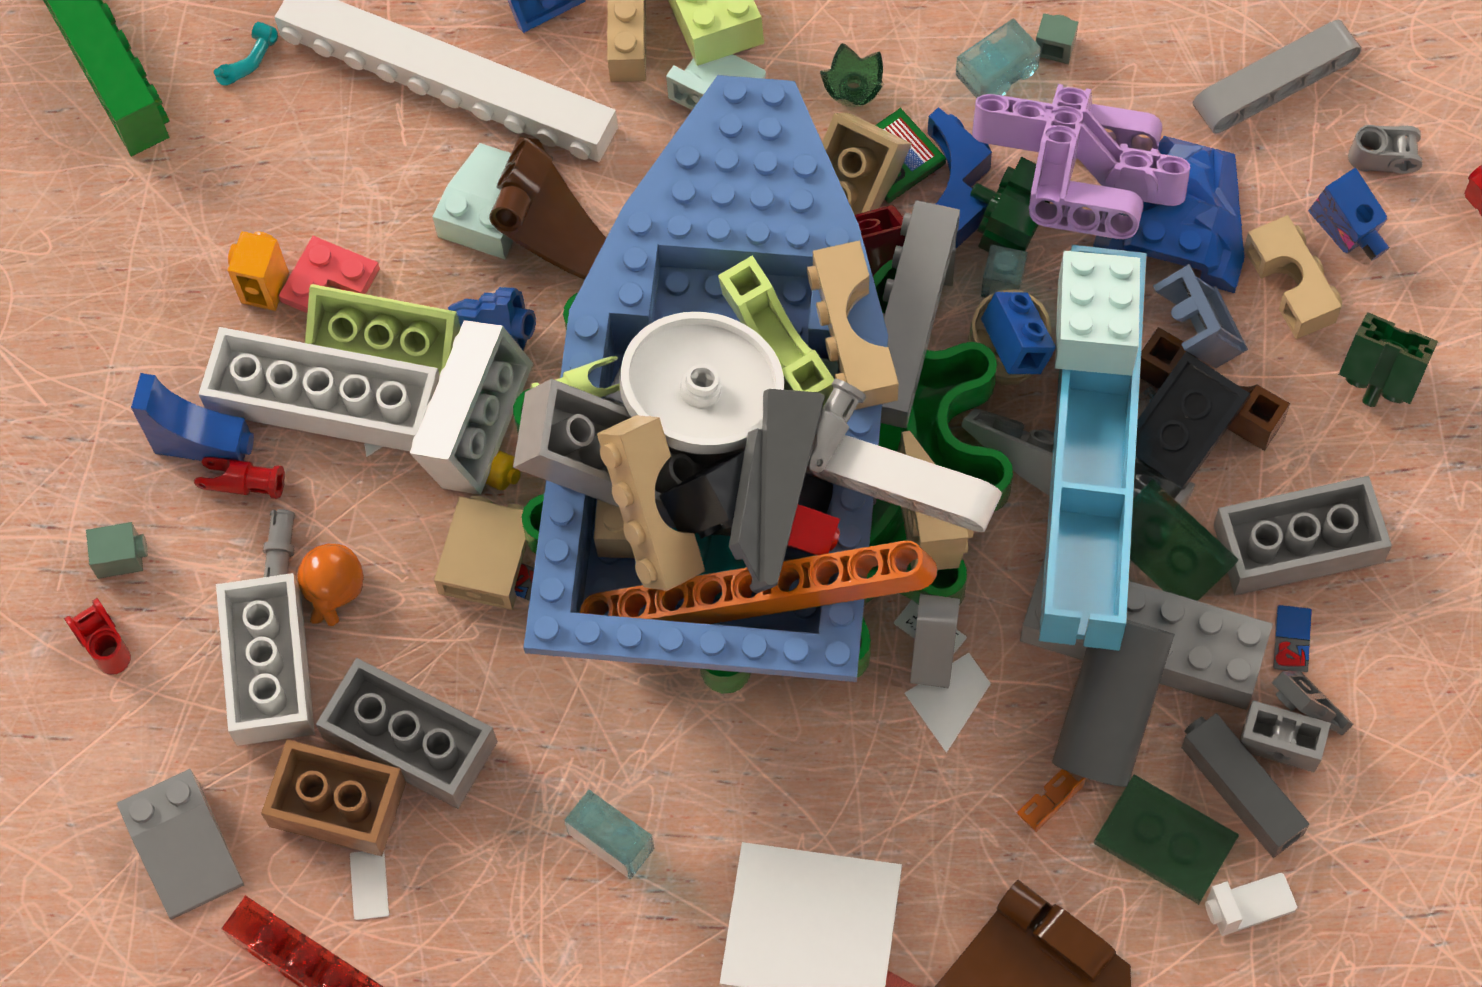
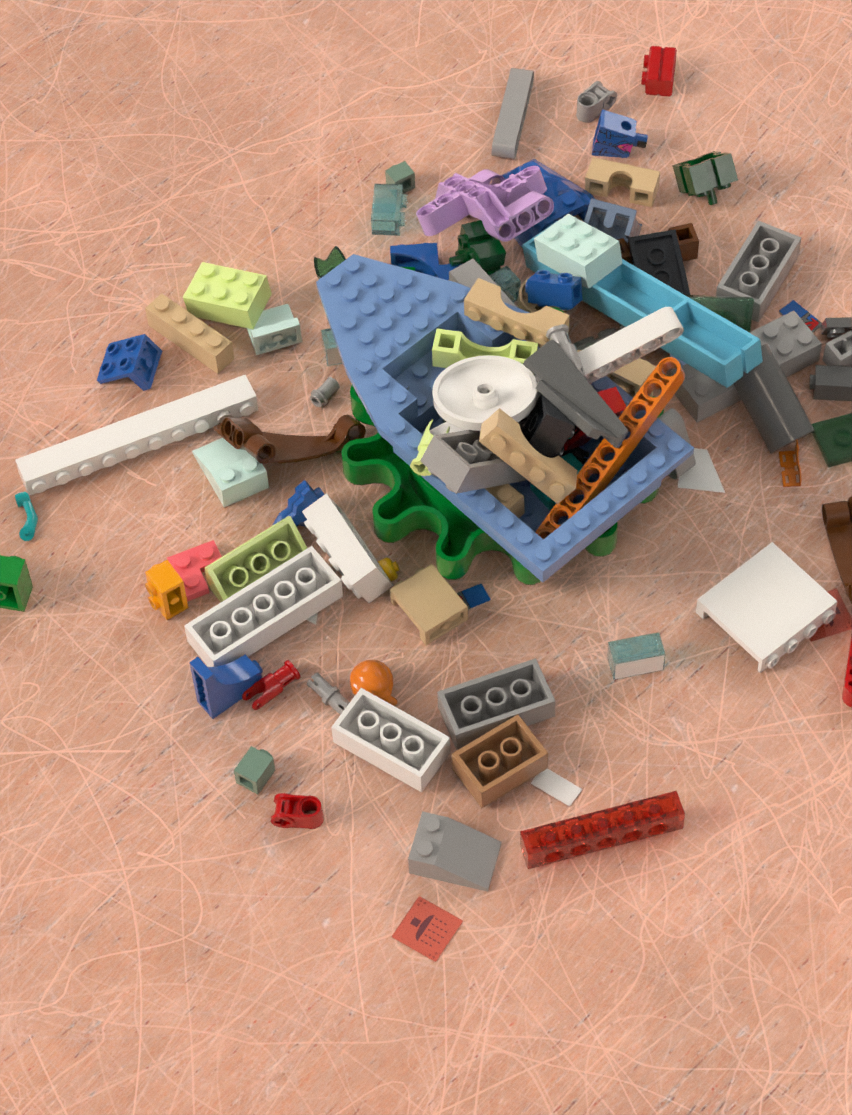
camera: 50 degrees left, 10 degrees down
(70, 893) = (427, 928): none -> clear red sticker

